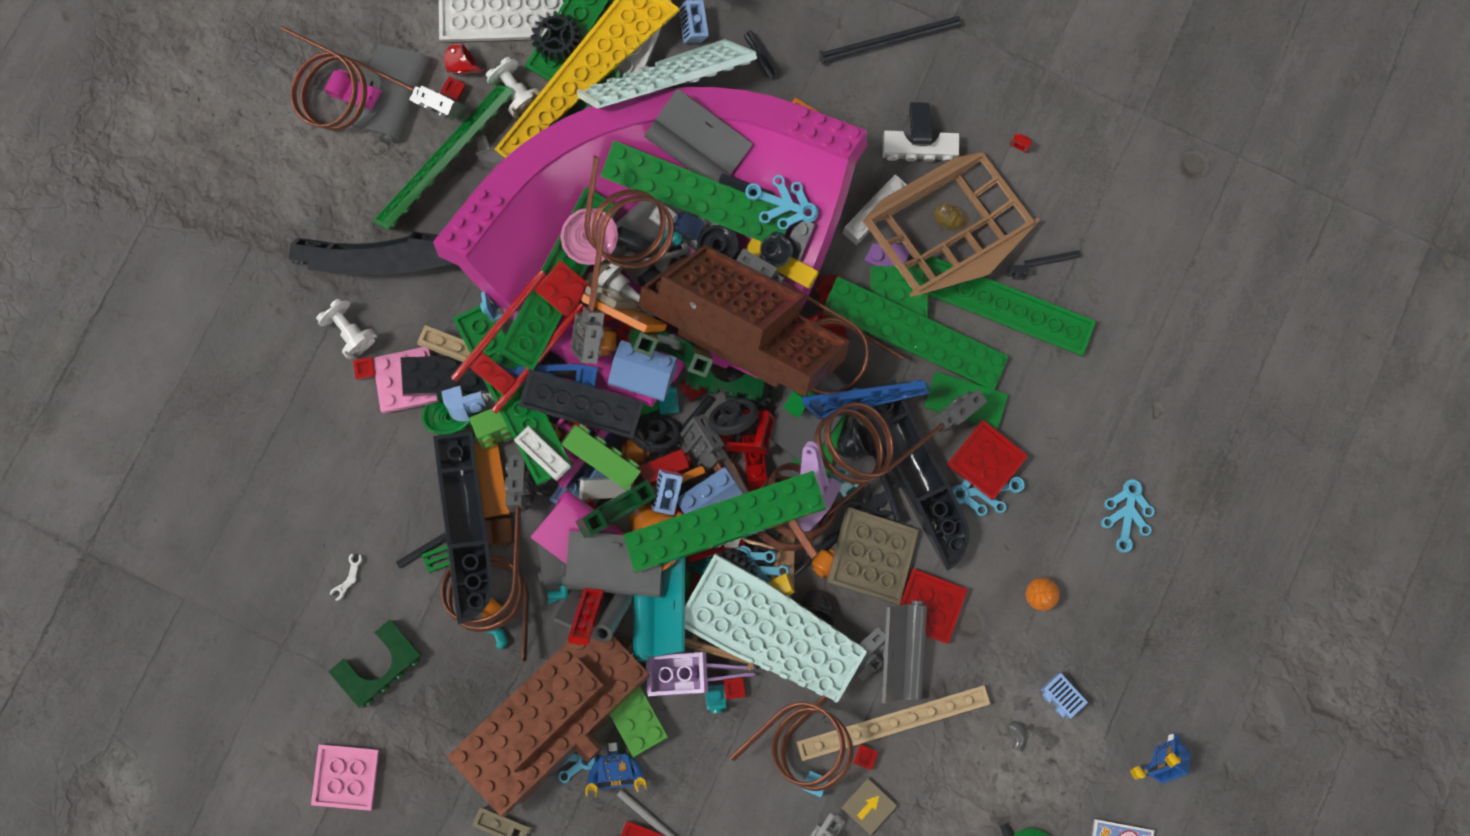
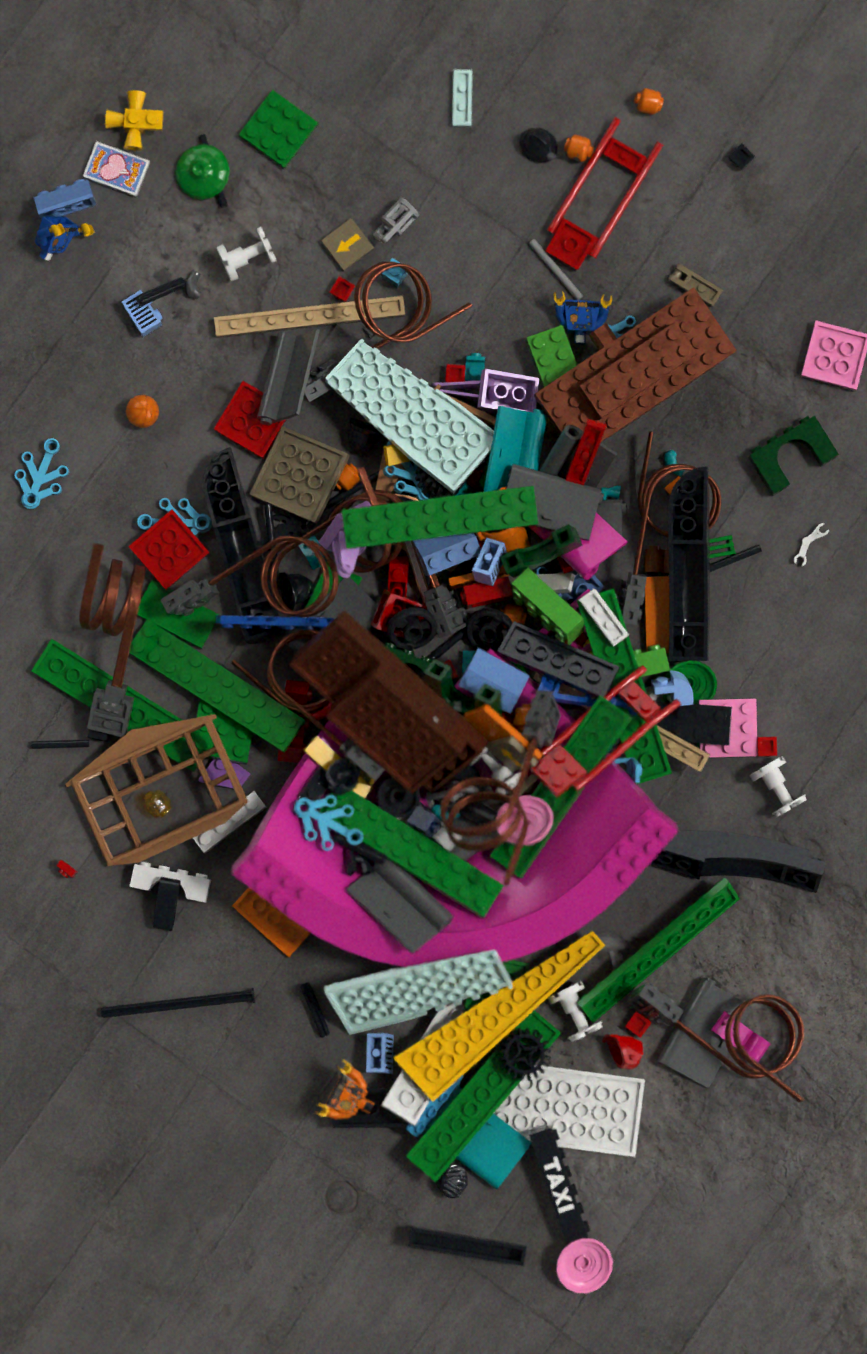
camera: 165 degrees left, 5 degrees up
(753, 176) = (351, 860): none -> black piece
(977, 770) = (237, 257): none -> white piece
(1013, 294) = (112, 706): none -> copper piece
(1049, 720) = (160, 291): none -> black axle
(1168, 800) = (65, 199): none -> medium blue slope

